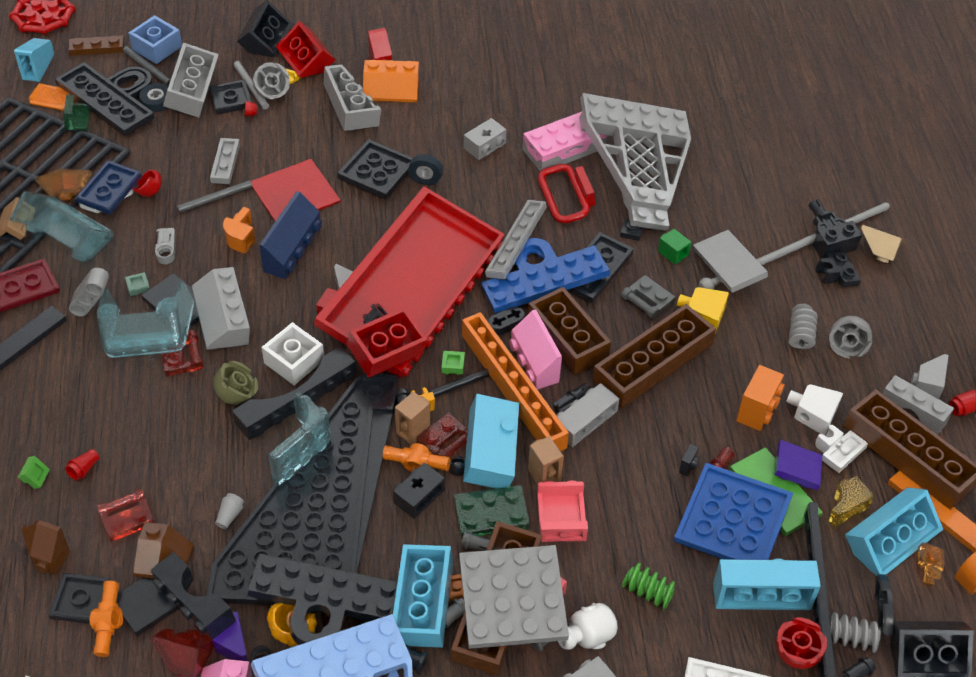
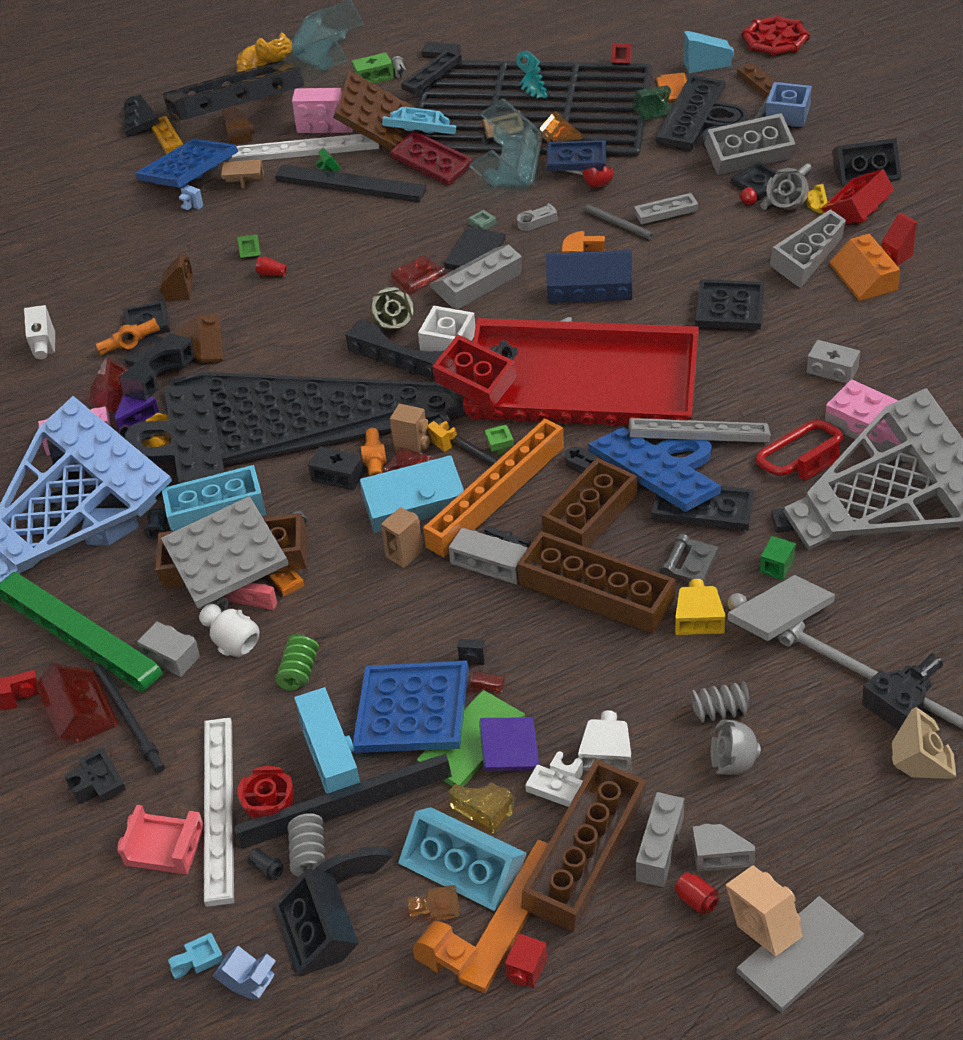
camera: 75 degrees right, 5 degrees down
(88, 292) = (439, 190): light grey beam -> none
(126, 521) = (232, 316): clear red plate -> none
(147, 331) = (425, 238): clear light blue windscreen -> none
(229, 509) = (262, 363): light grey cone -> none
(279, 187) = (667, 267): piece -> none
(303, 443) = (339, 368): clear light blue bracket -> none
(419, 174) = (746, 331): black bush -> none
(482, 509) = (341, 527): clear green plate -> none
(536, 351) = (542, 492): bright pink slope -> none
(561, 511) = (361, 576): coral panel -> none
(761, 398) = (580, 682): orange brick -> none
(838, 267) = (847, 720): black plate -> none

